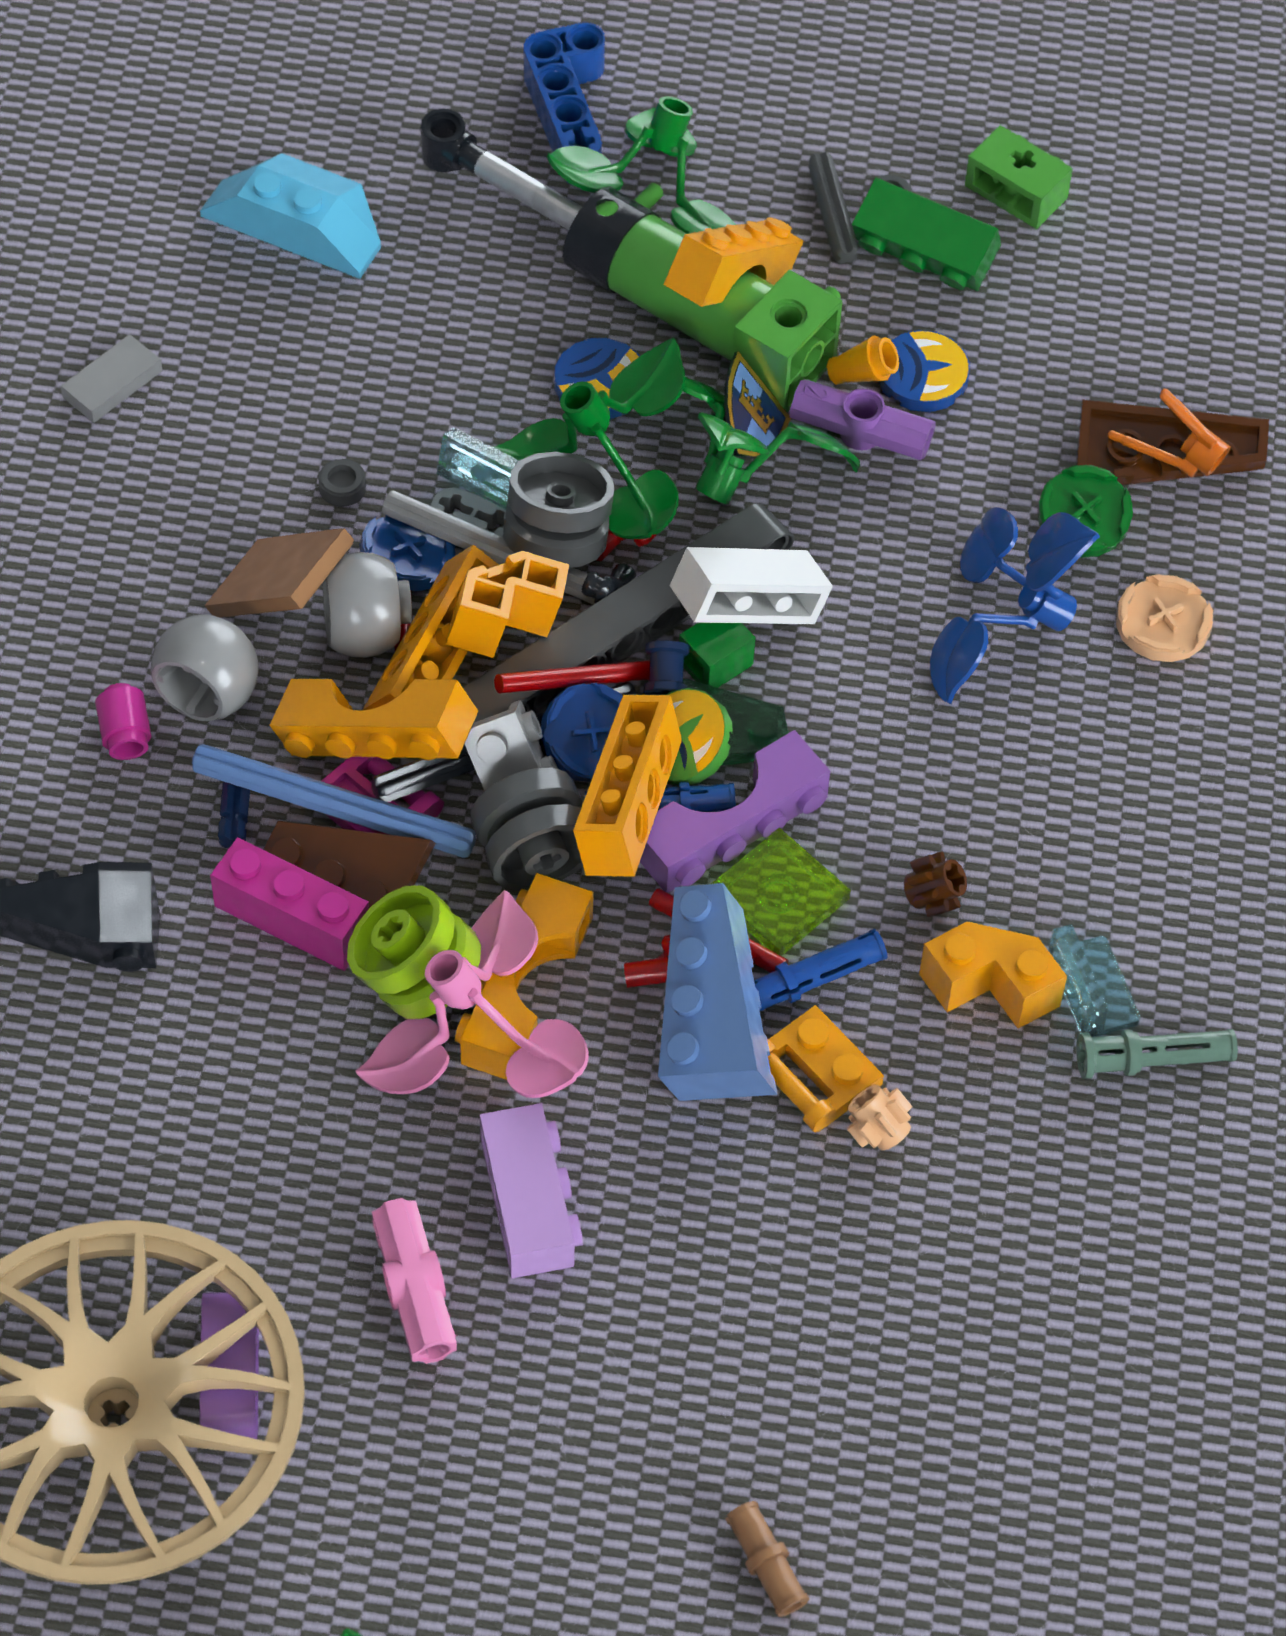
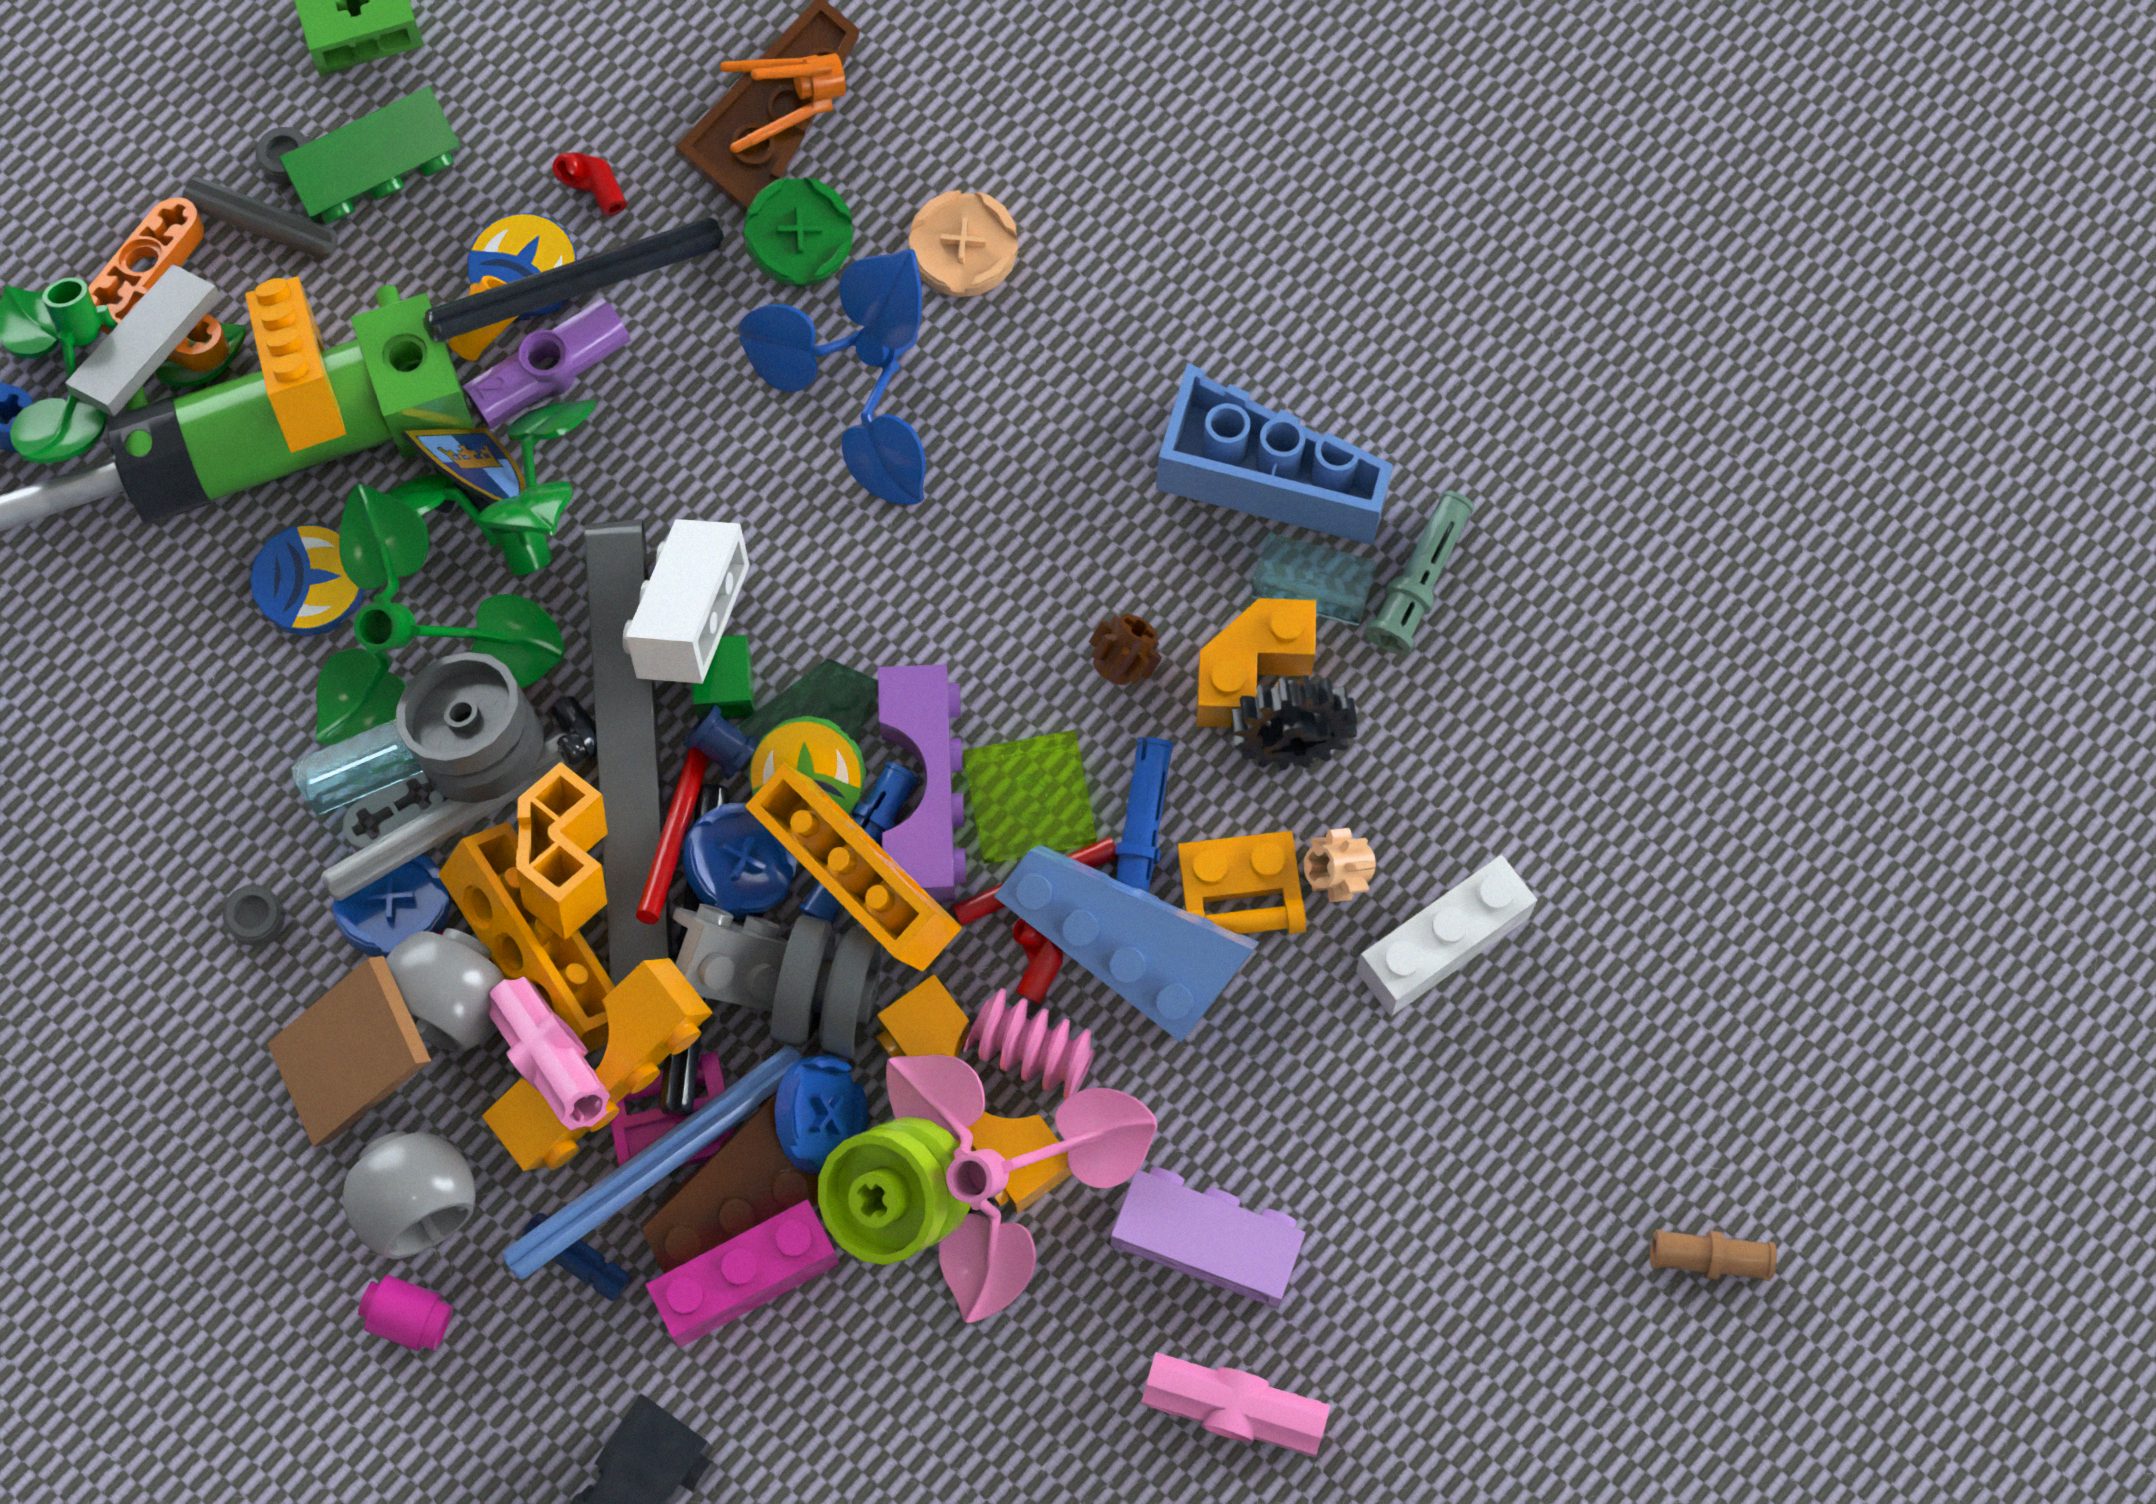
camera: 55 degrees left, 15 degrees up
(355, 674) = (548, 1053): none -> bright pink piece
(446, 866) = (818, 1110): none -> blue tile
(591, 989) = (1032, 1044): none -> bright pink piece
(684, 177) = (143, 340): none -> tile
(716, 164) = (150, 241): none -> orange beam
(879, 1221) = (1446, 935): none -> white brick
(930, 388) = (572, 279): none -> black axle
(961, 1016) = (1294, 722): none -> black gear
(1022, 371) = (591, 176): none -> red arm
(1150, 890) = (1267, 463): none -> medium blue wedge

